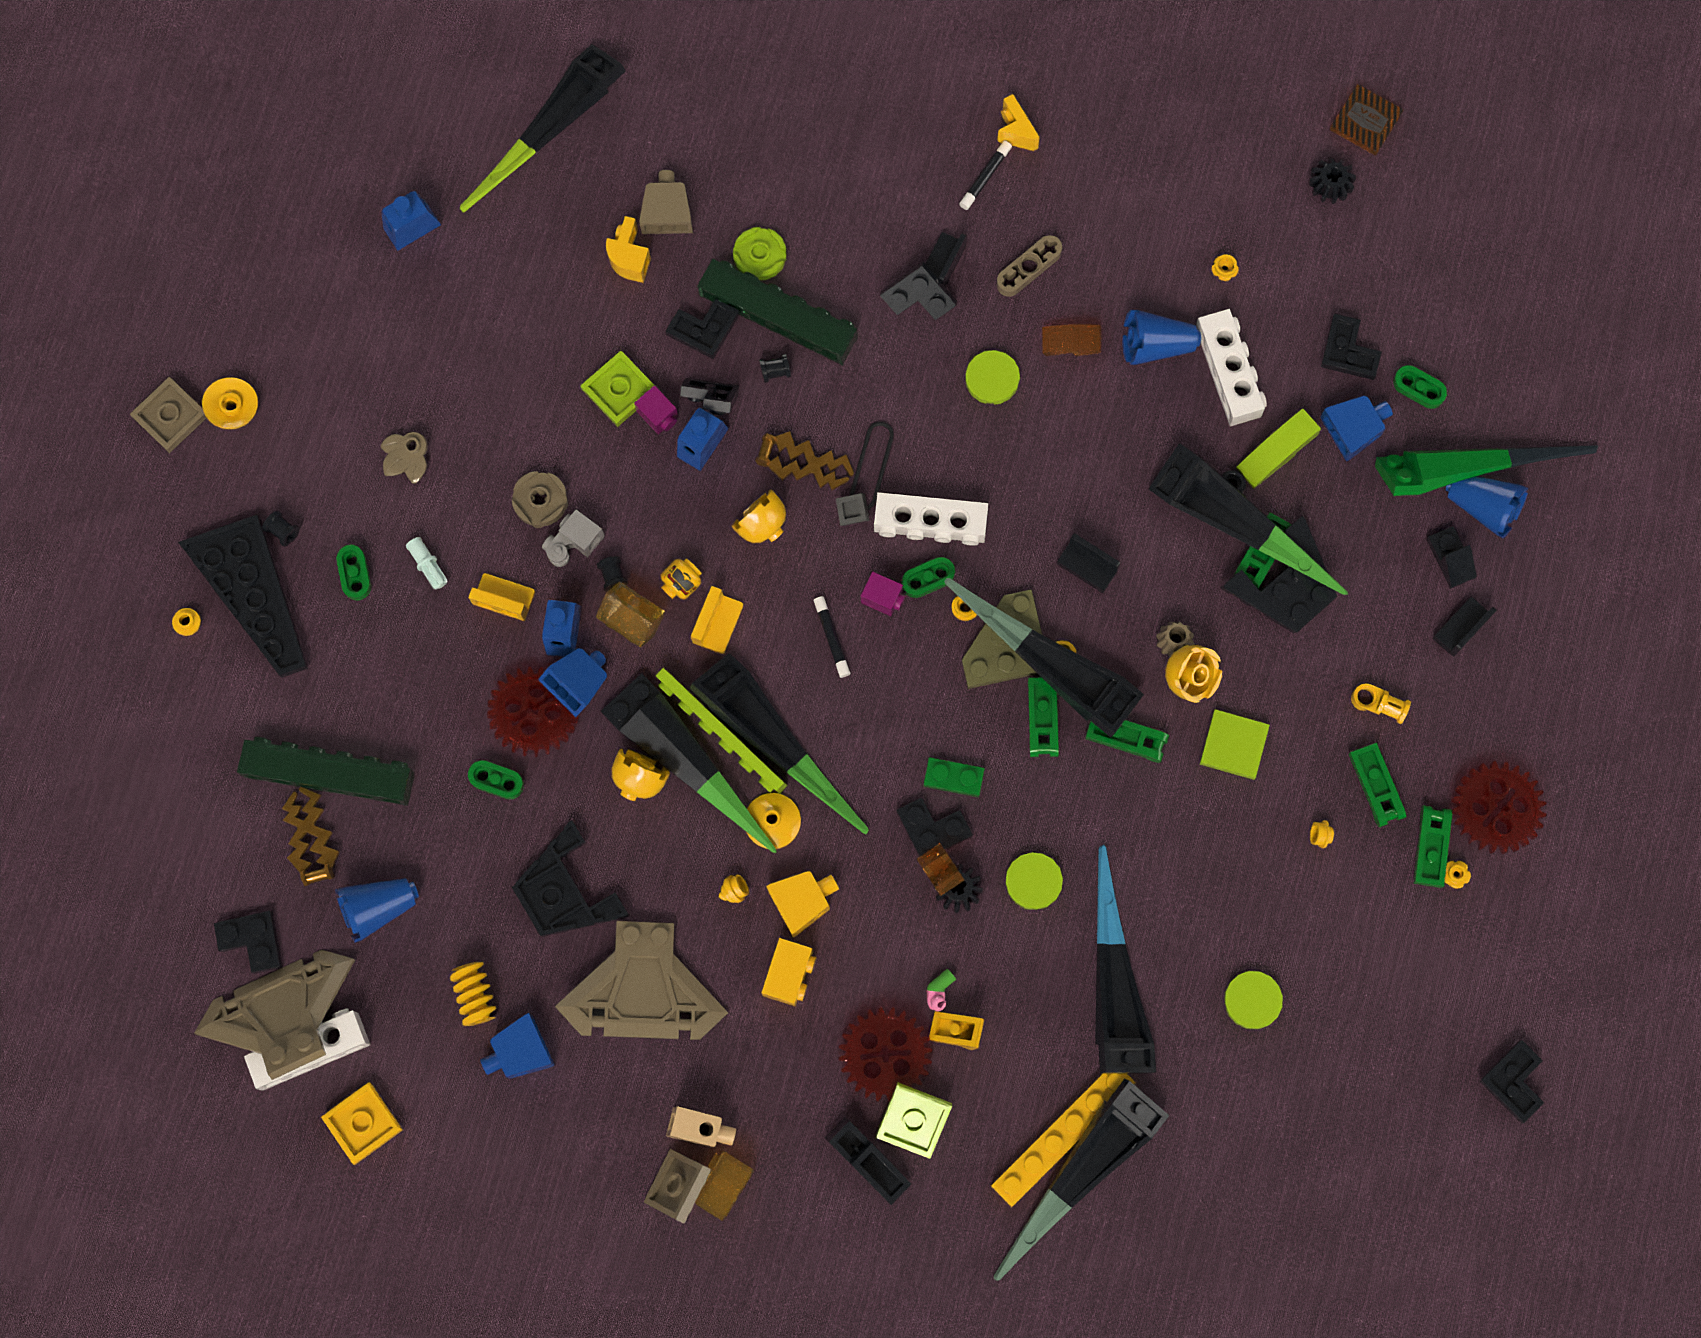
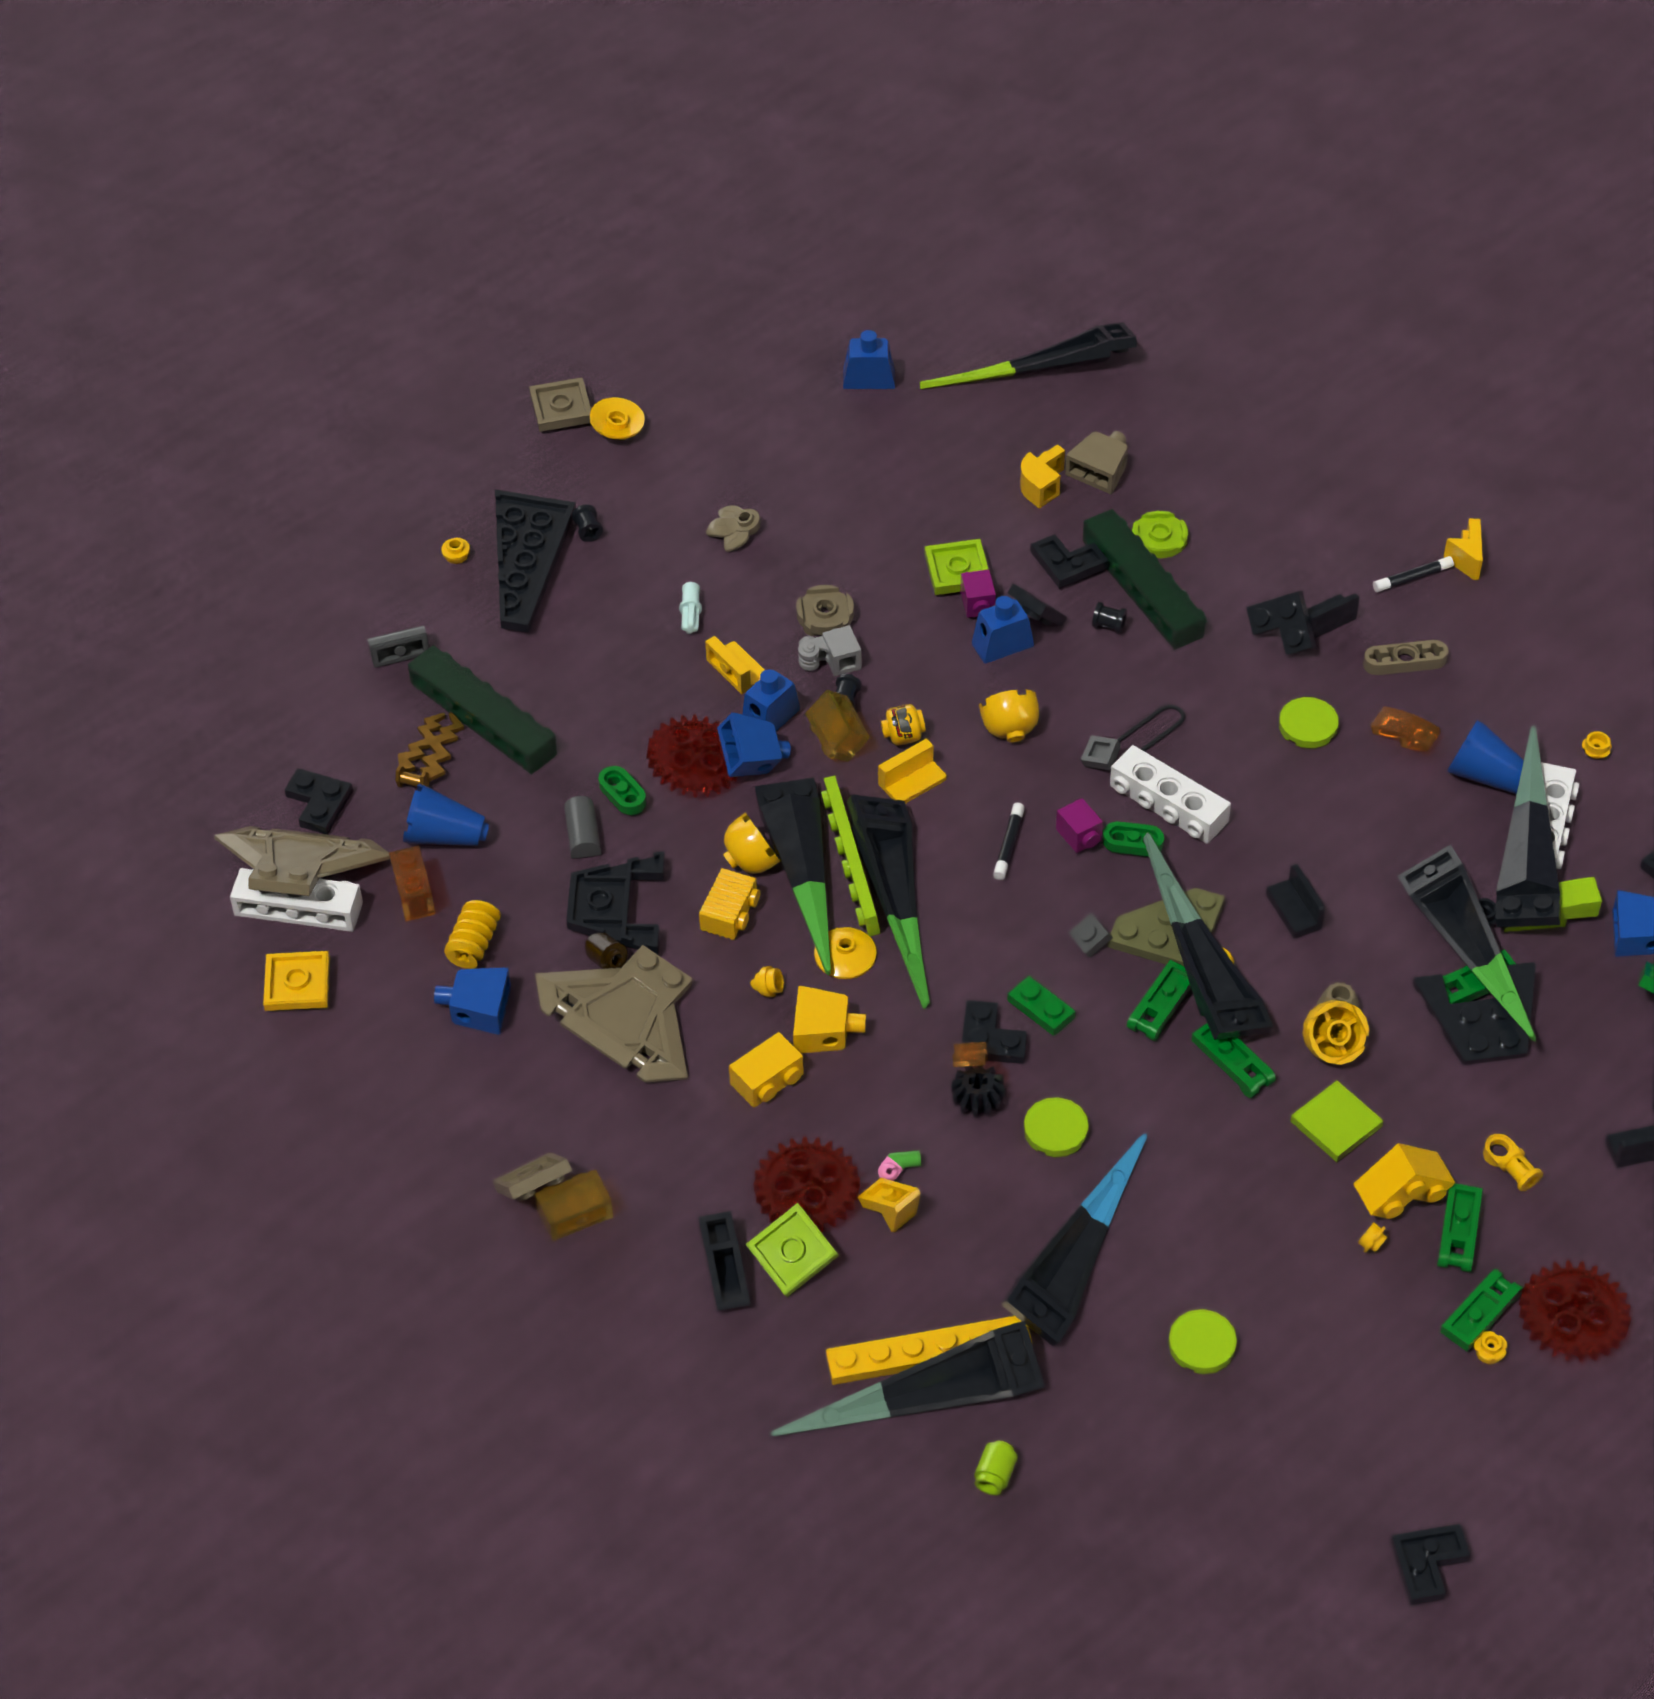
camera: 30 degrees right, 25 degrees down
(209, 751) = (397, 646): none -> dark grey brick
(353, 573) = (619, 588): green plate -> none
(391, 977) = (412, 883): none -> clear orange brick
(488, 835) = (582, 827): none -> dark grey brick
(591, 944) = (605, 951): none -> dark brown brick
(656, 836) = (728, 904): none -> yellow brick
(685, 1126) = (585, 1139): tan torso -> none
(814, 463) = (1090, 707): pearl gold piece -> none
(952, 690) = (1090, 935): none -> dark grey plate
(958, 613) = (1143, 880): yellow plate -> none
(1176, 1205) = (995, 1467): none -> lime brick
(1255, 439) = (1528, 875): none -> black plate
(1322, 775) = (1403, 1176): none -> yellow brick

